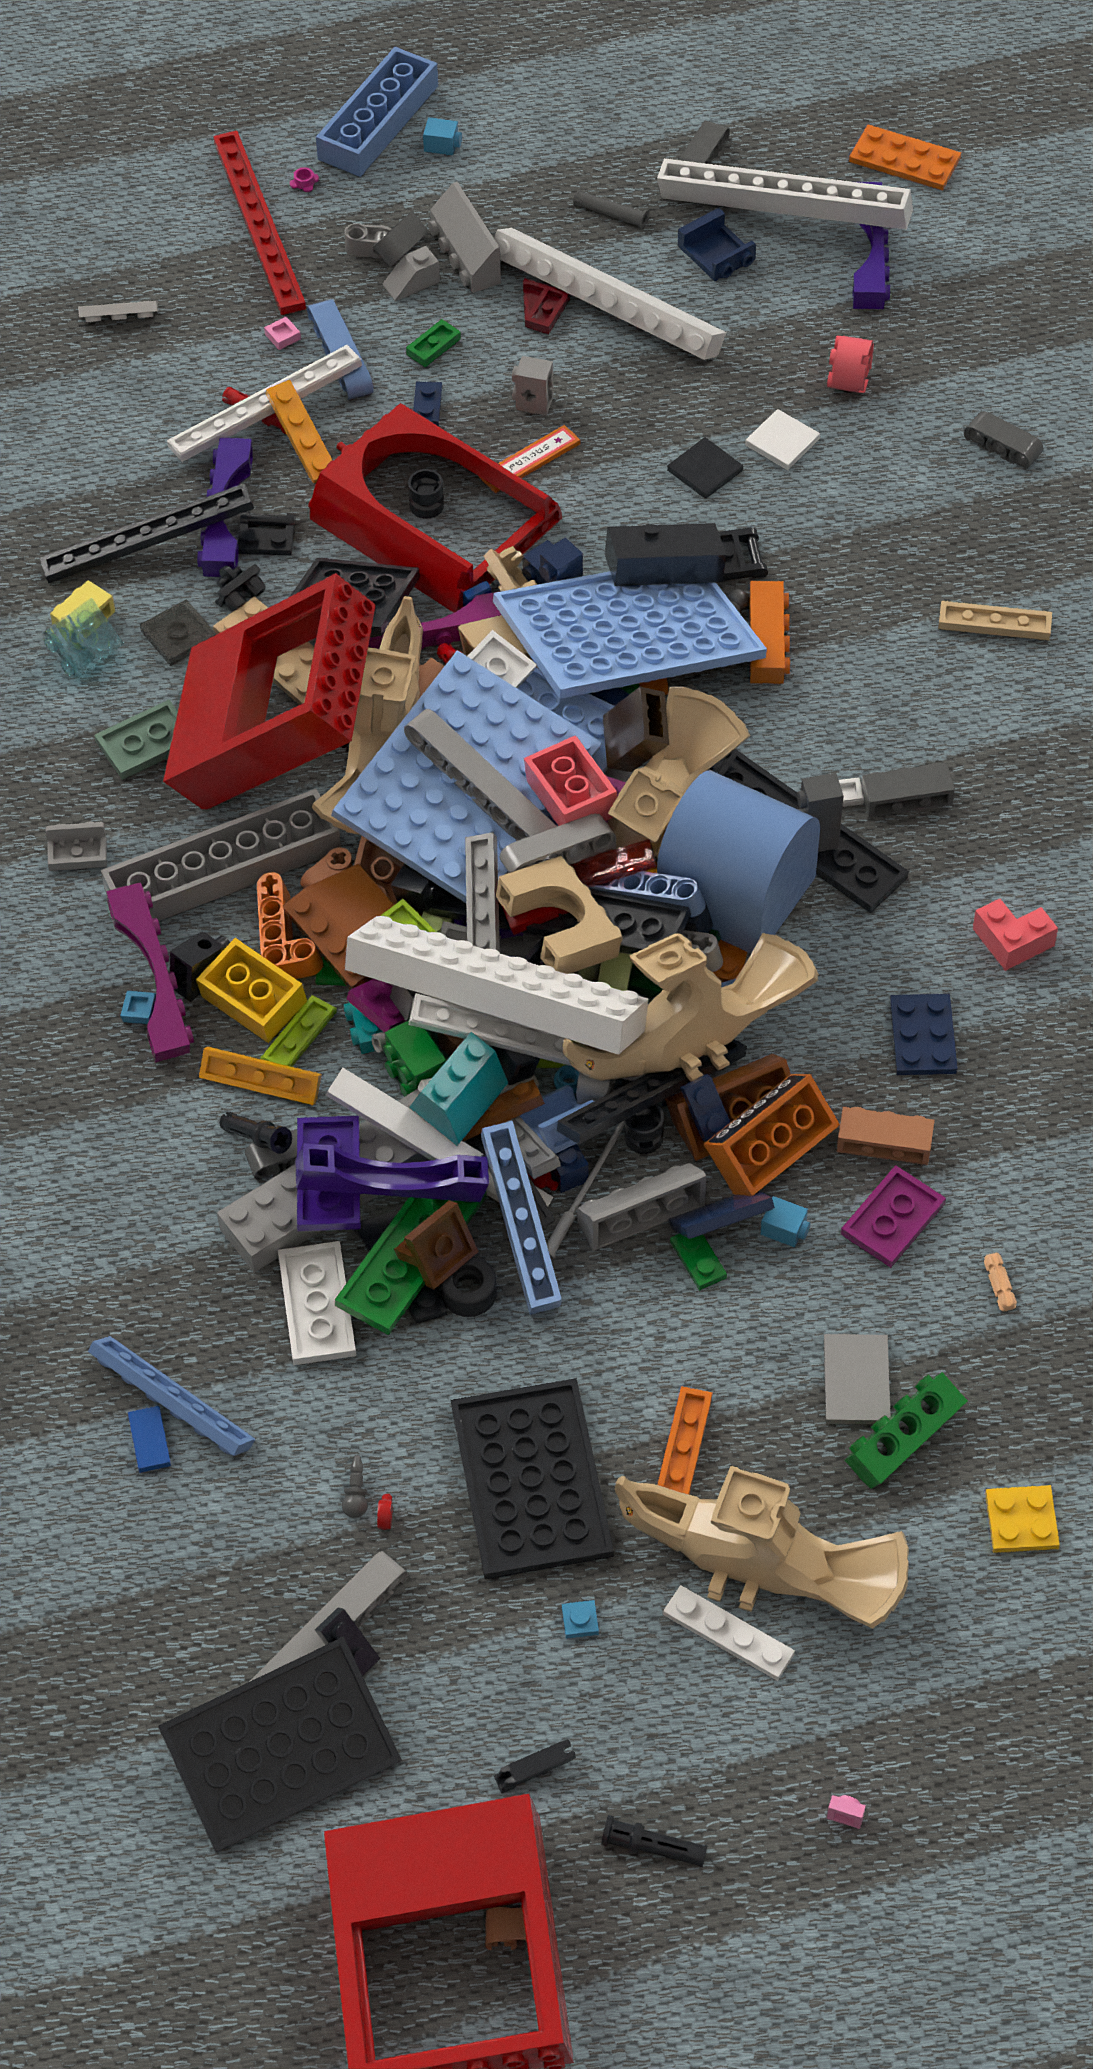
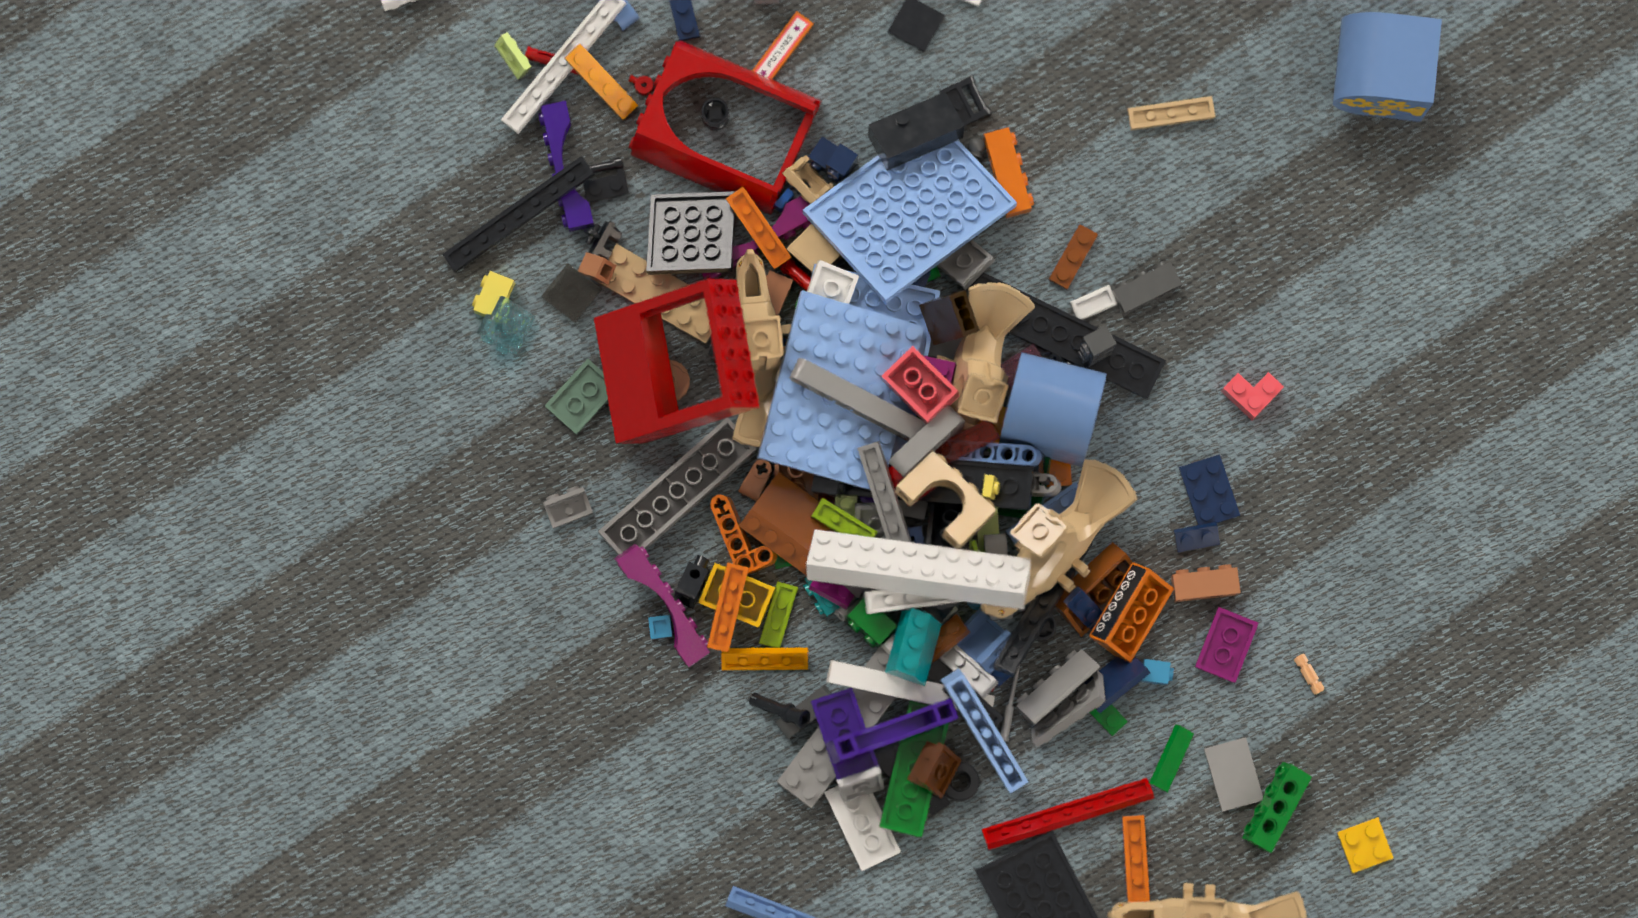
camera: 20 degrees left, 25 degrees up
(208, 390) = (512, 55): none -> yellowish green plate
(218, 606) = (597, 268): none -> nougat brick
(231, 988) = (728, 607): none -> orange plate
(328, 1238) = (861, 784): none -> light grey tile
(433, 605) = (758, 228): none -> orange plate
(615, 1364) = (1067, 813): none -> red plate
(624, 914) = (990, 487): none -> light yellow plate
(654, 1227) = (1070, 710): none -> light grey wing
(773, 1333) = (1171, 758): none -> green tile
(822, 740) = (1073, 257): none -> dark orange plate
(890, 1079) = (1196, 537): none -> dark blue plate

